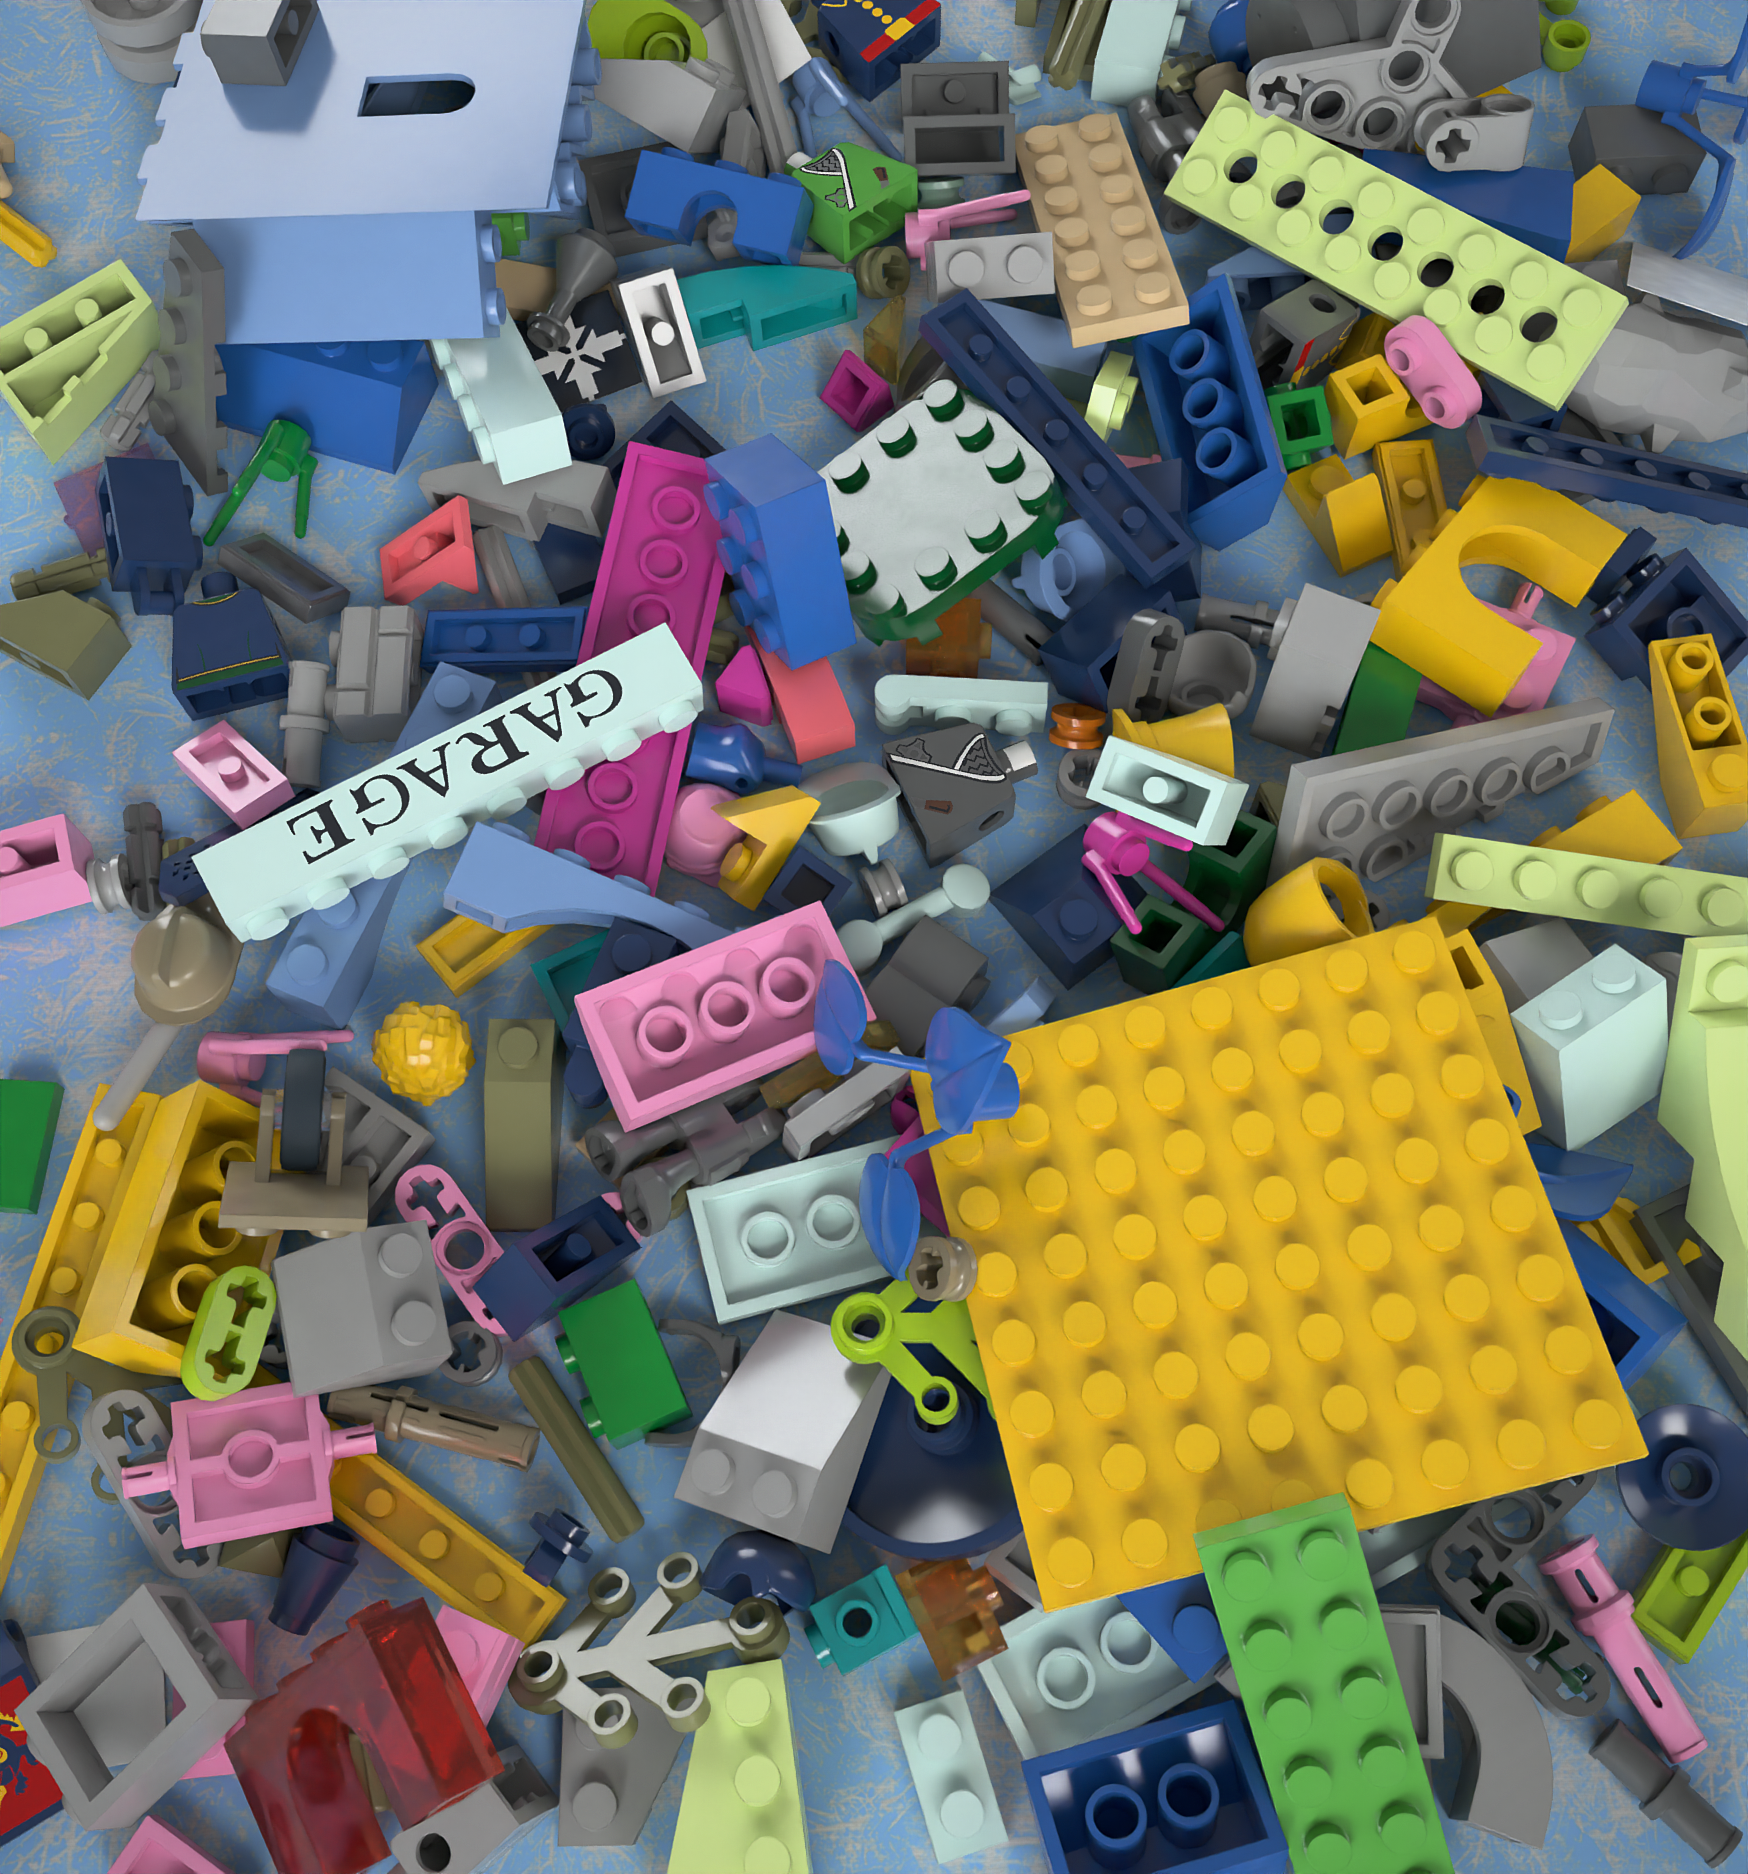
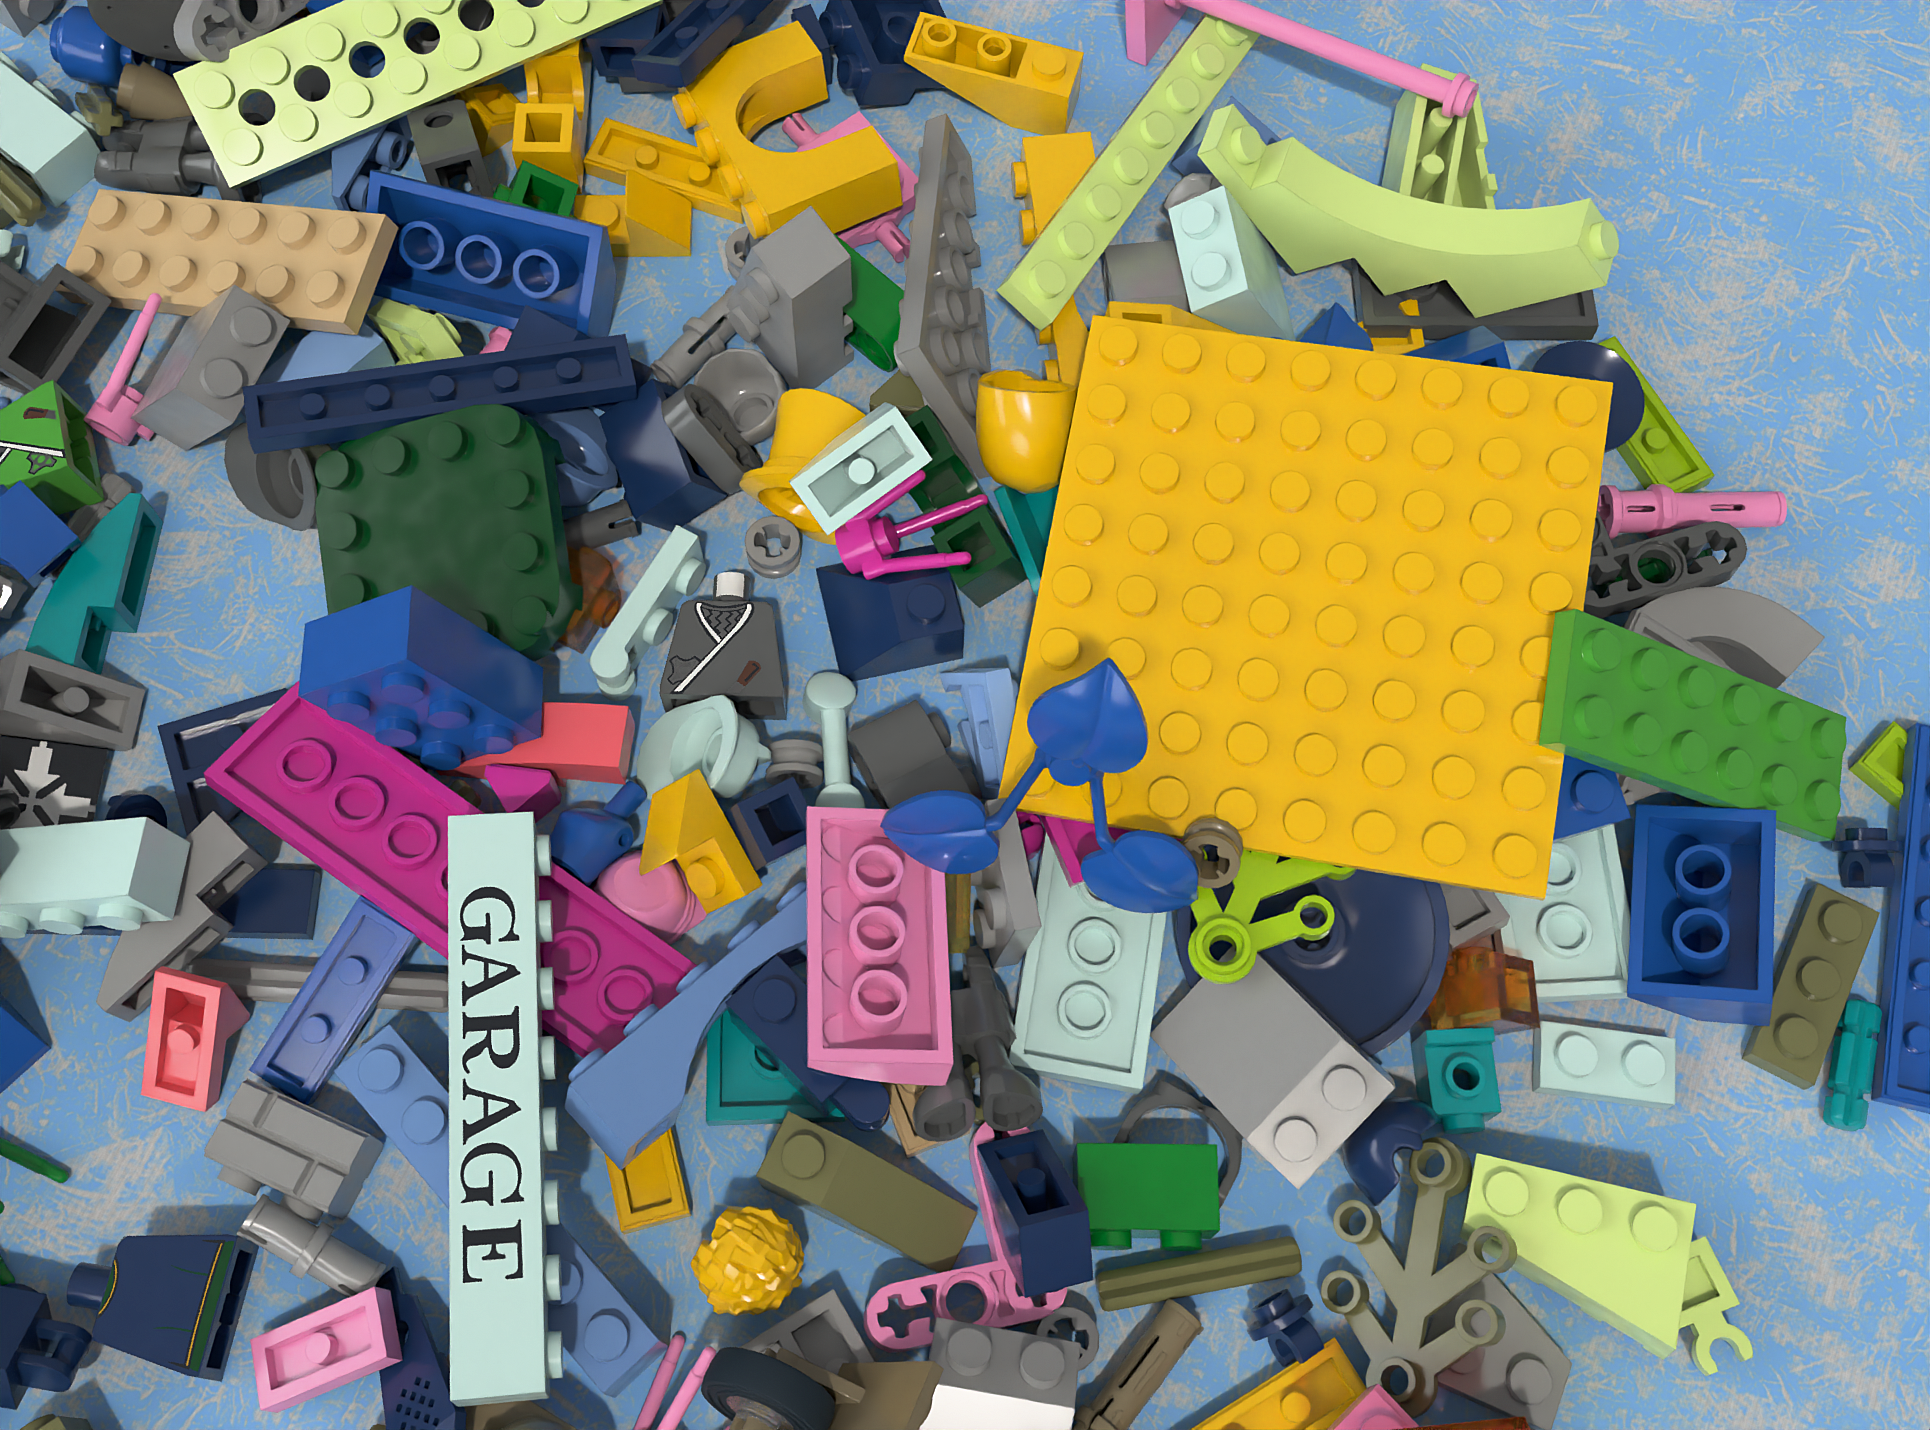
camera: 70 degrees left, 0 degrees up
(284, 577) = (113, 1210): flat silver tile -> none
(857, 393) = (253, 556): dark pink slope -> none
(886, 339) = (218, 501): clear yellow slope -> none
(895, 268) = (136, 469): olive bush -> none
(940, 192) = (83, 379): sand green bush -> none
(1076, 726) = (723, 527): orange bush -> none
(1432, 372) = (562, 73): bright pink plate -> none
(1666, 1793) = (1804, 538): dark grey pin -> none

